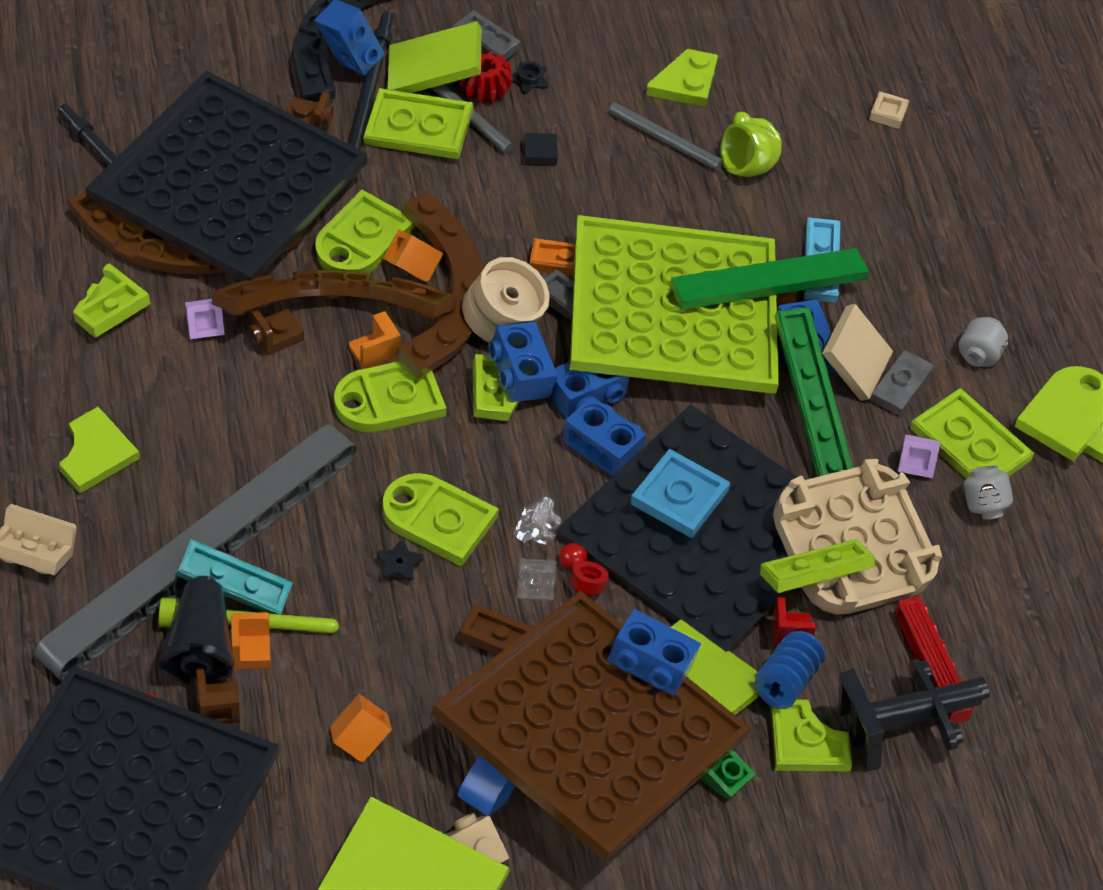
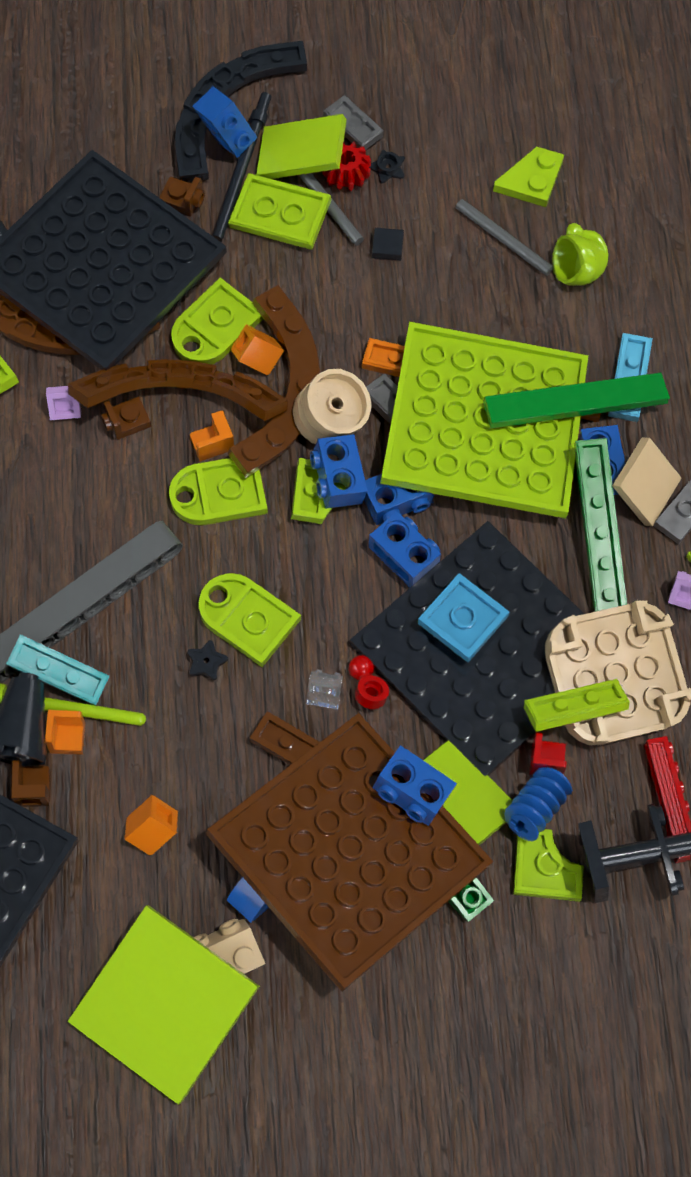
camera: 10 degrees right, 15 degrees up
(535, 519) = (330, 630): clear tile -> none

